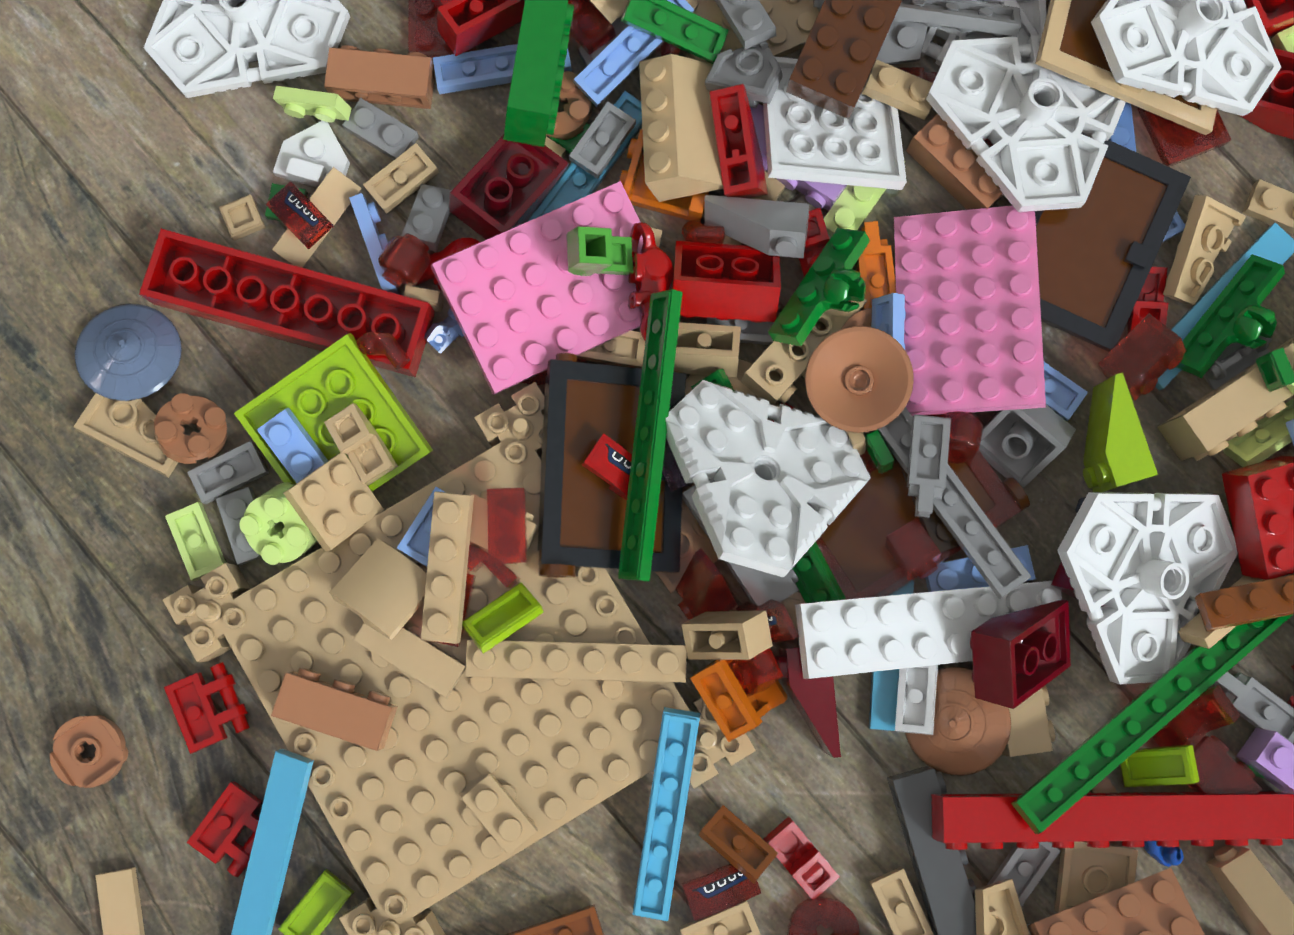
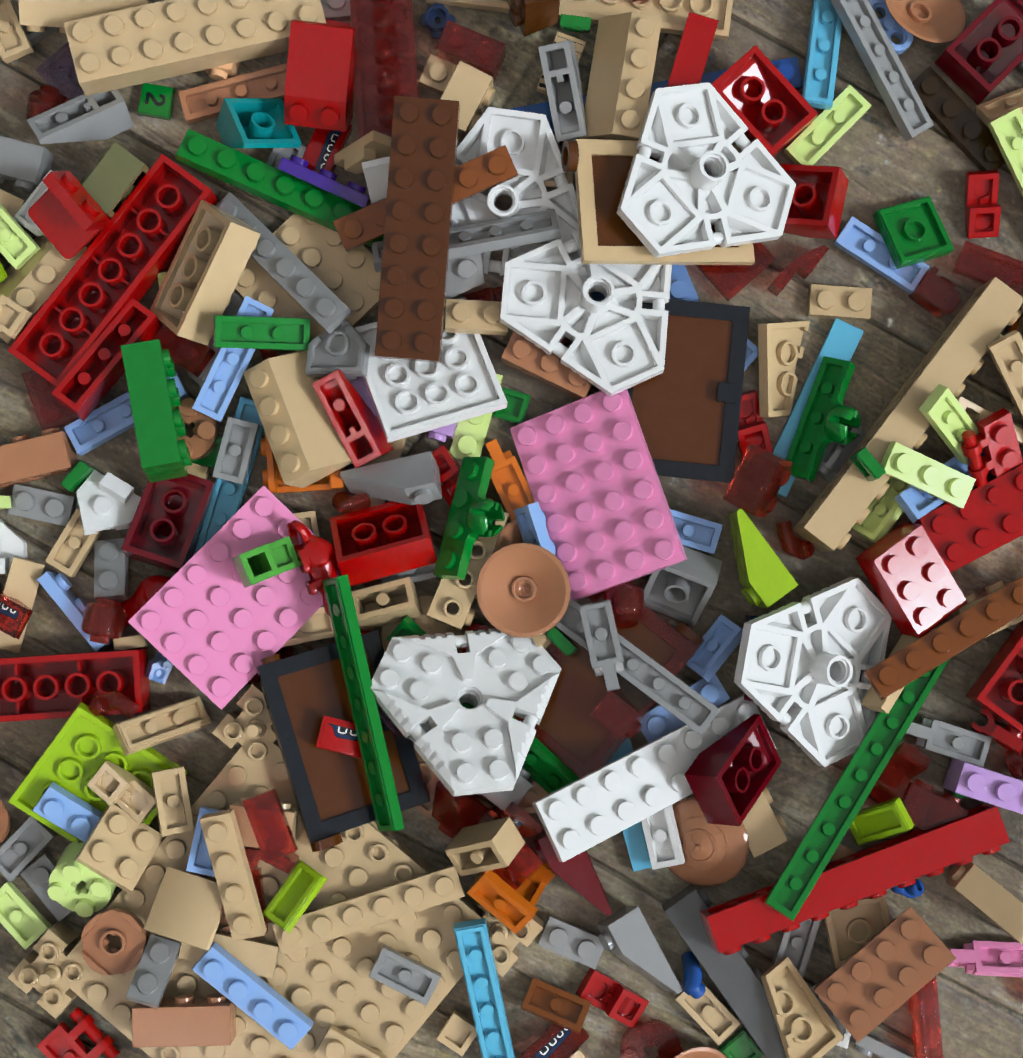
camera: 15 degrees left, 5 degrees up
(271, 591) = (95, 941): none -> nougat plate
(322, 643) = (153, 971): none -> light grey plate
(408, 470) = (172, 801): none -> tan plate
(419, 709) = (253, 995): none -> light blue plate
(424, 391) = (161, 725): none -> tan tile
(429, 112) = (77, 476): none -> green tile
(448, 147) = (106, 503): none -> white plate
(591, 745) = (405, 975): none -> light grey plate
(620, 836) = (457, 1033): none -> tan plate
(778, 782) = (571, 941): none -> light grey plate
(847, 807) = (633, 942): none -> light grey slope
(899, 864) = (692, 976): none -> blue arm
(903, 201) = (516, 406): none -> green tile
(1039, 519) = (716, 648): none -> light blue plate
(1158, 445) = (791, 544): none -> clear red arm
(1252, 157) = (802, 266): none -> clear red slope

